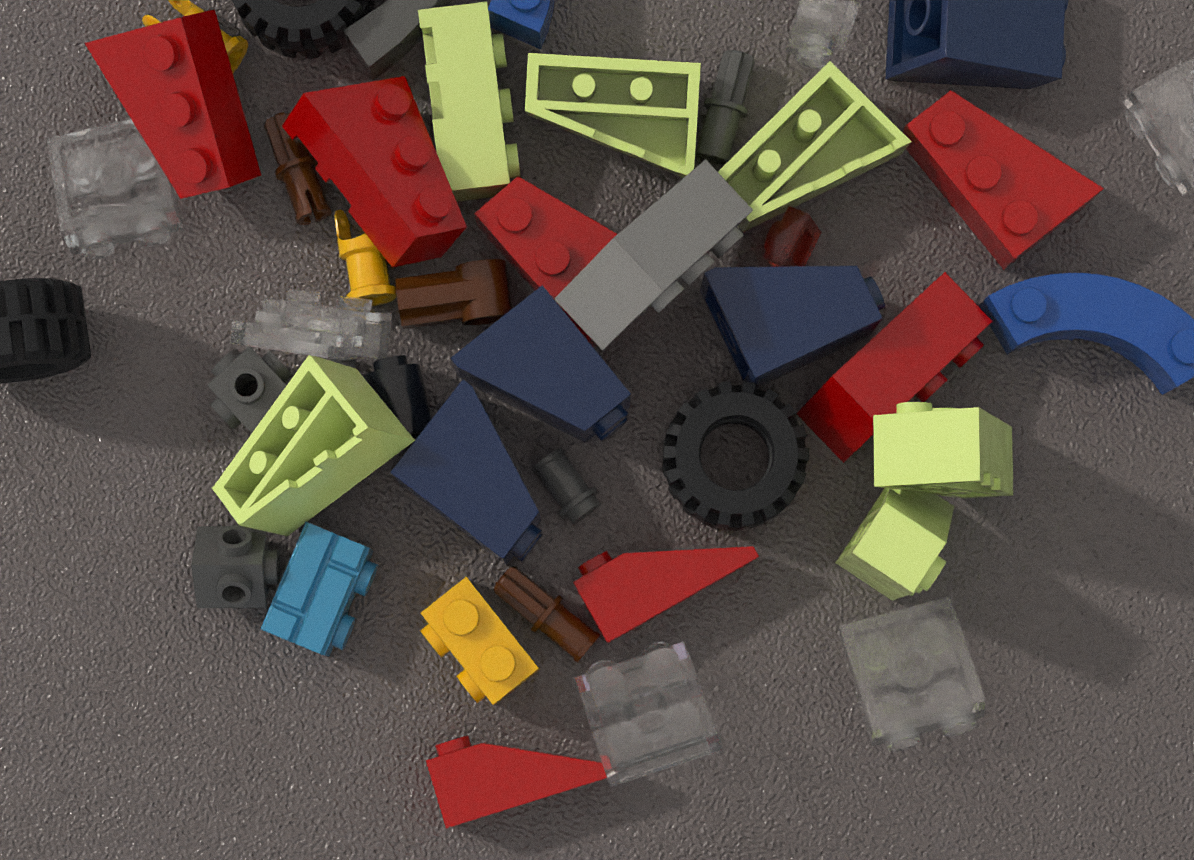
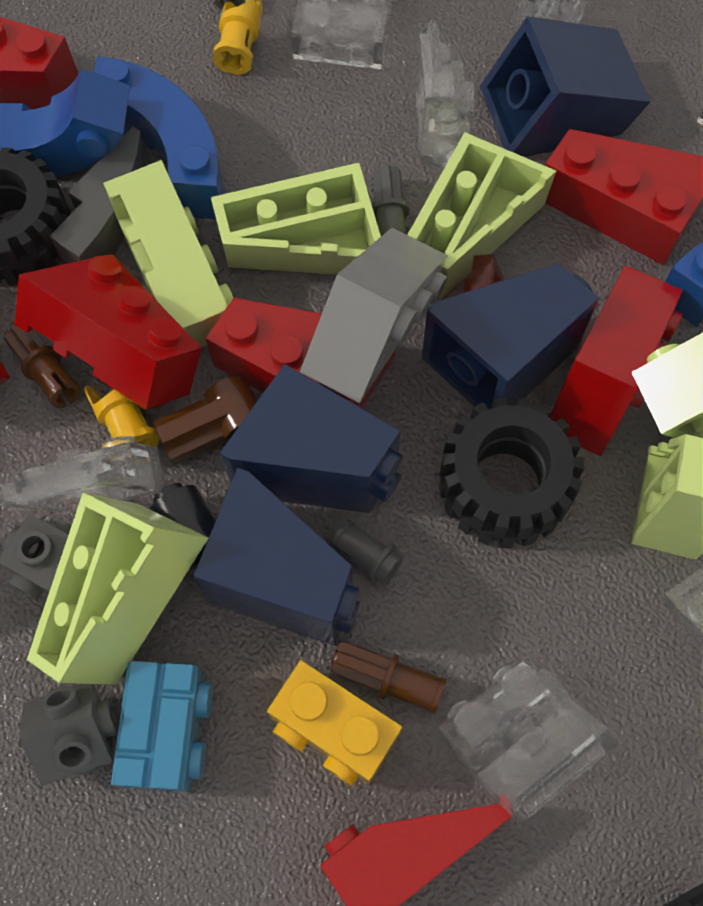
camera: 15 degrees left, 15 degrees down
(644, 584) = (472, 614): red slope -> none

